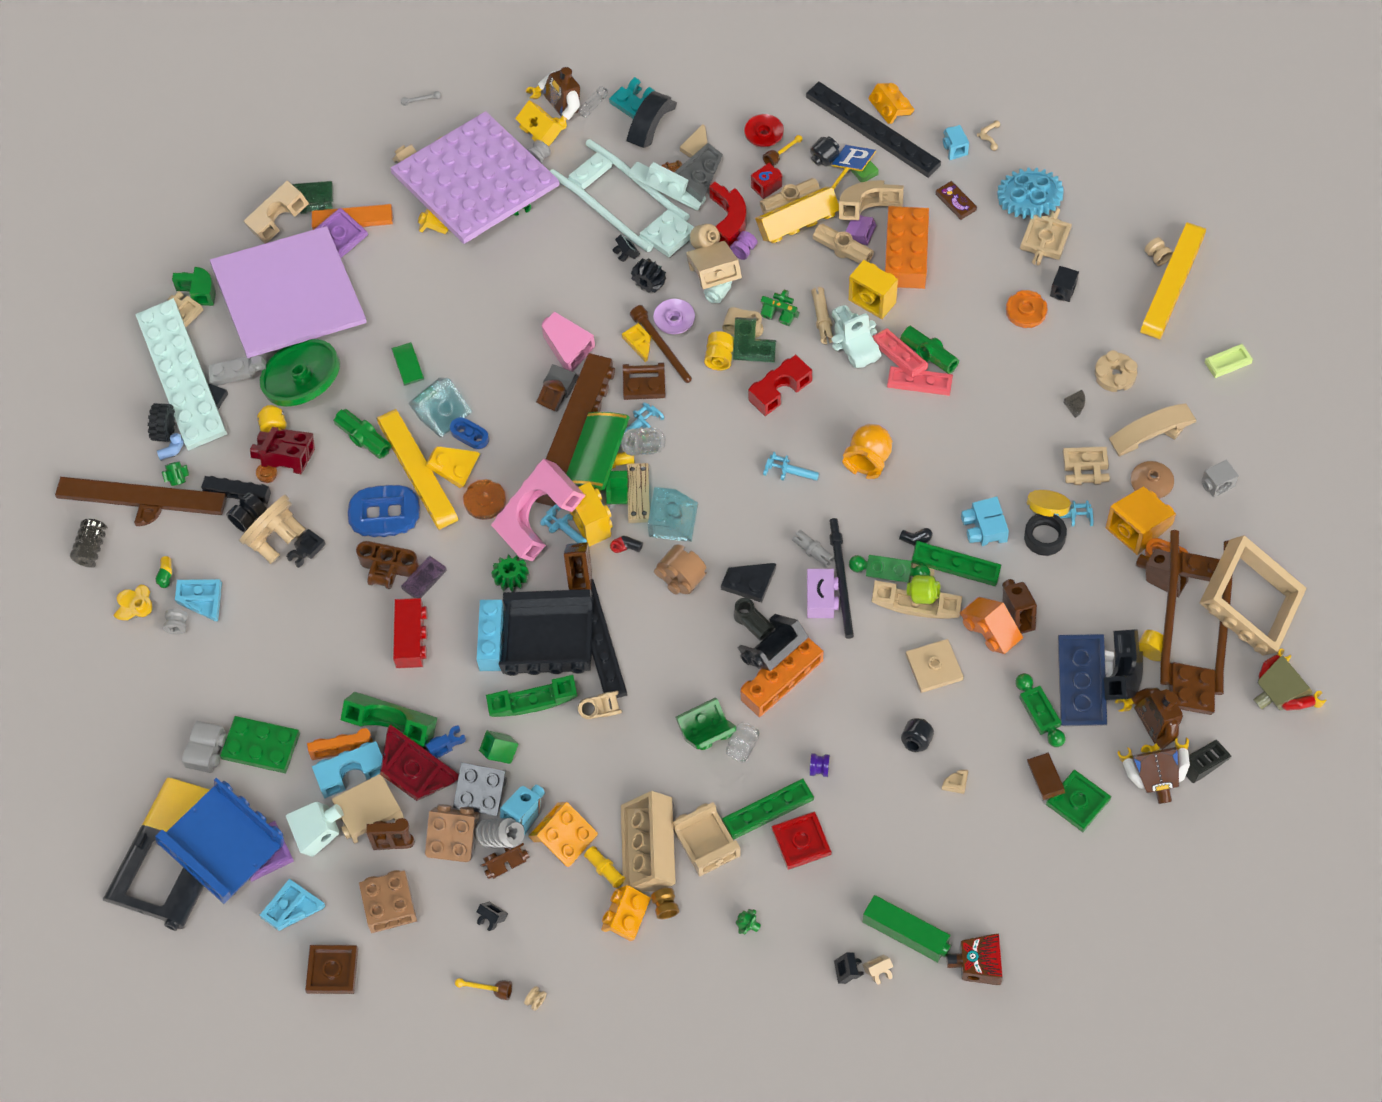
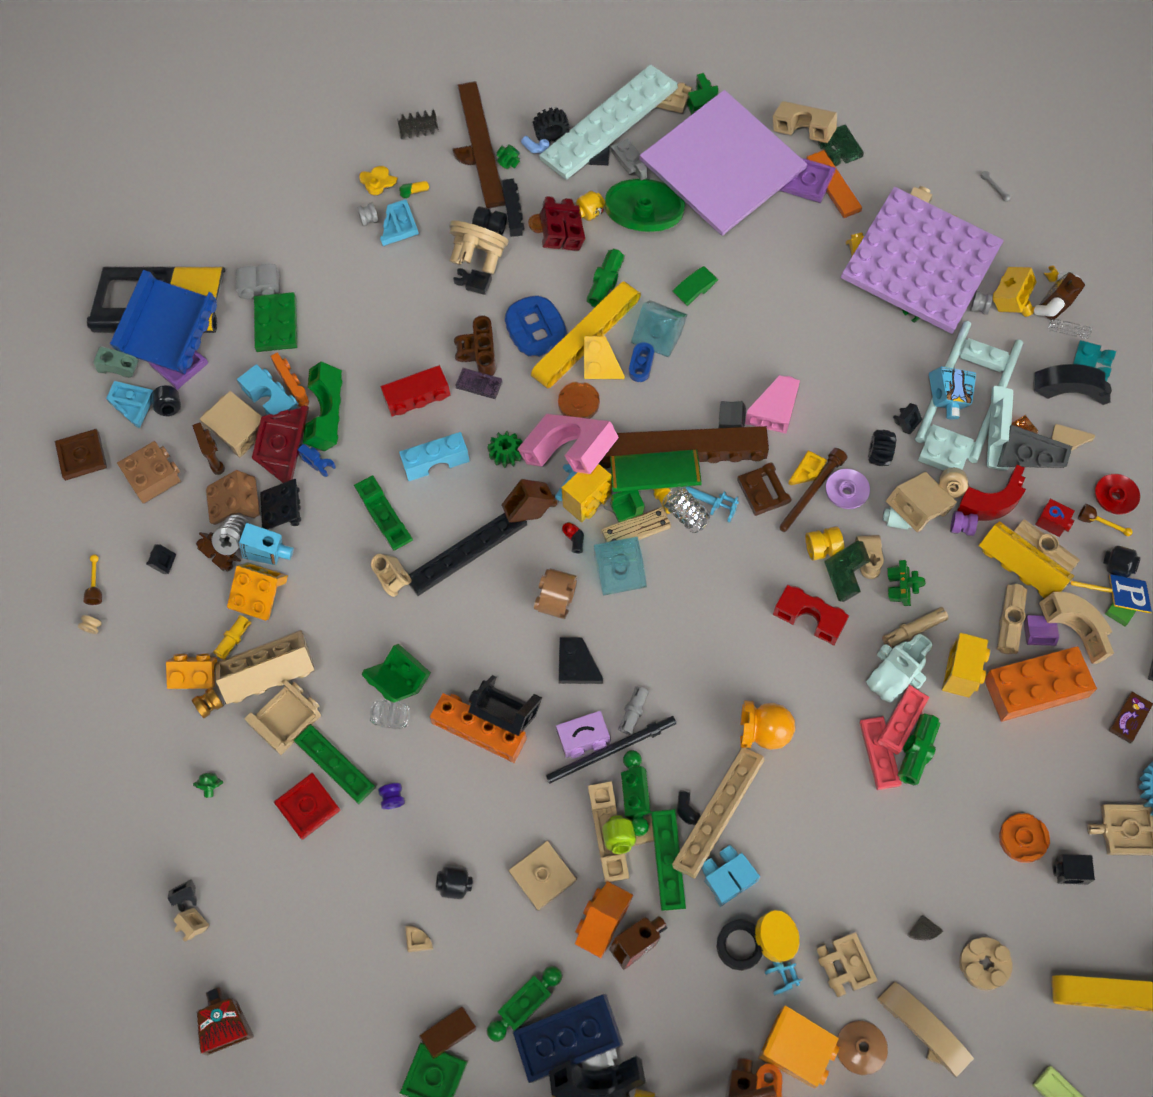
camera: 70 degrees right, 5 degrees up
(235, 910) = (115, 362): none -> sand green leg
(308, 869) = (165, 400): none -> black head
(314, 826) = (201, 388): light aqua torso -> none
(498, 747) = (325, 505): green panel -> none
(547, 632) = (452, 504): black panel -> none
(551, 394) = (710, 413): reddish brown plate -> none
(617, 204) = (952, 389): none -> medium azure torso
(753, 620) = (530, 680): pearl dark grey piece -> none
(789, 468) = (718, 657): medium azure piece -> none
(906, 929) = (237, 940): green brick -> none
(930, 510) = (718, 813): none -> tan plate

